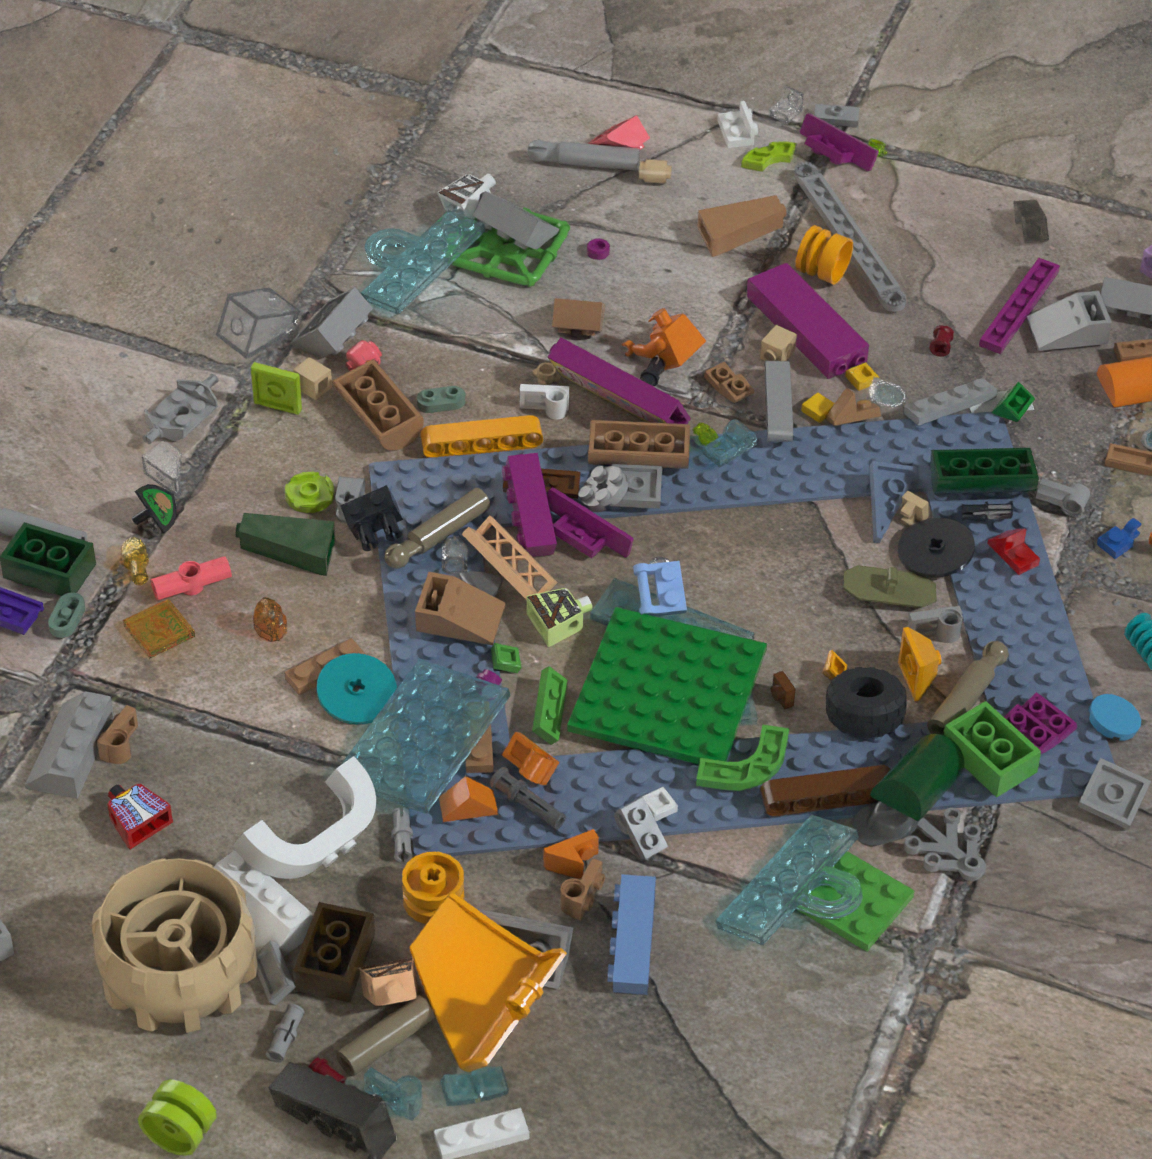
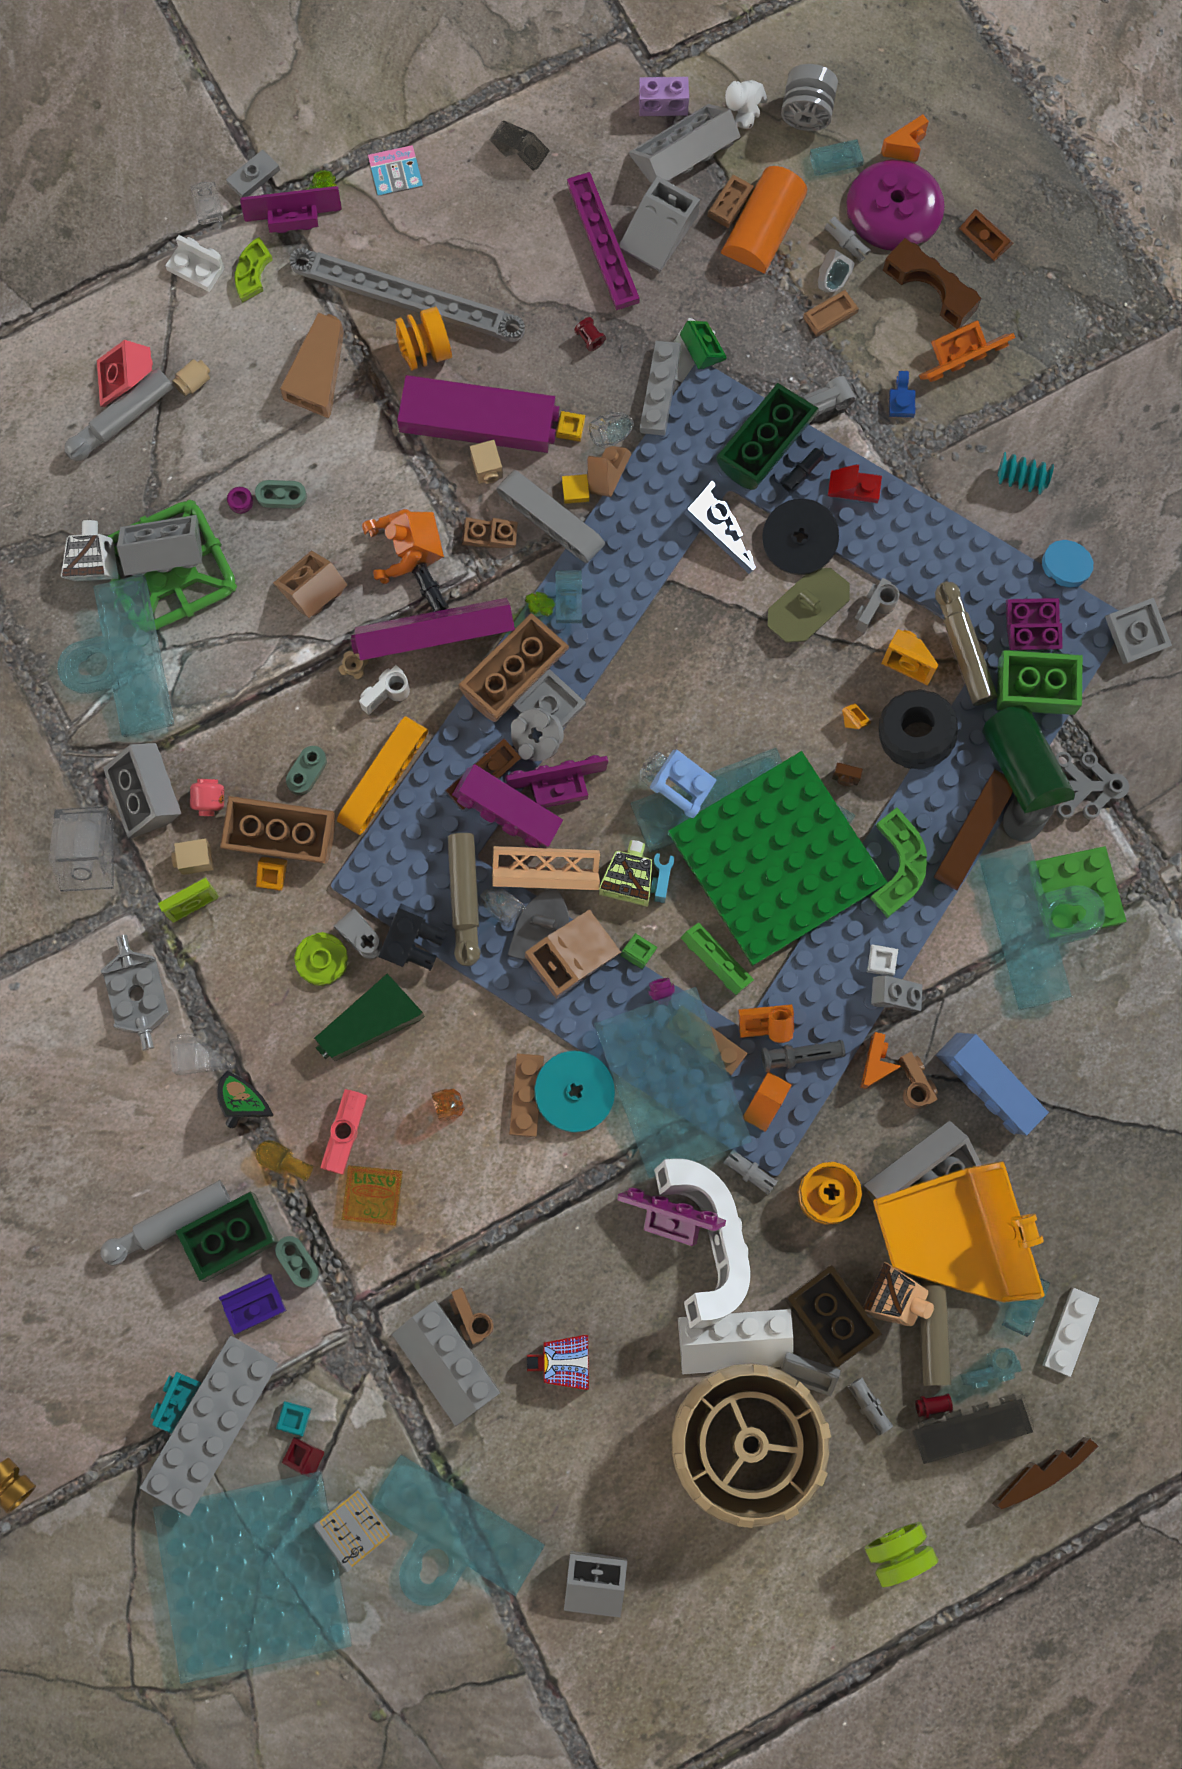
camera: 50 degrees left, 30 degrees up
(314, 799) = (672, 1220): none -> magenta bracket
(344, 427) = (271, 873): none -> light orange slope
(574, 635) = (660, 884): none -> medium azure plate
(626, 263) = (281, 493): none -> sand green plate
(913, 509) = (748, 517): tan tile -> none
(932, 179) = (395, 170): none -> sticker

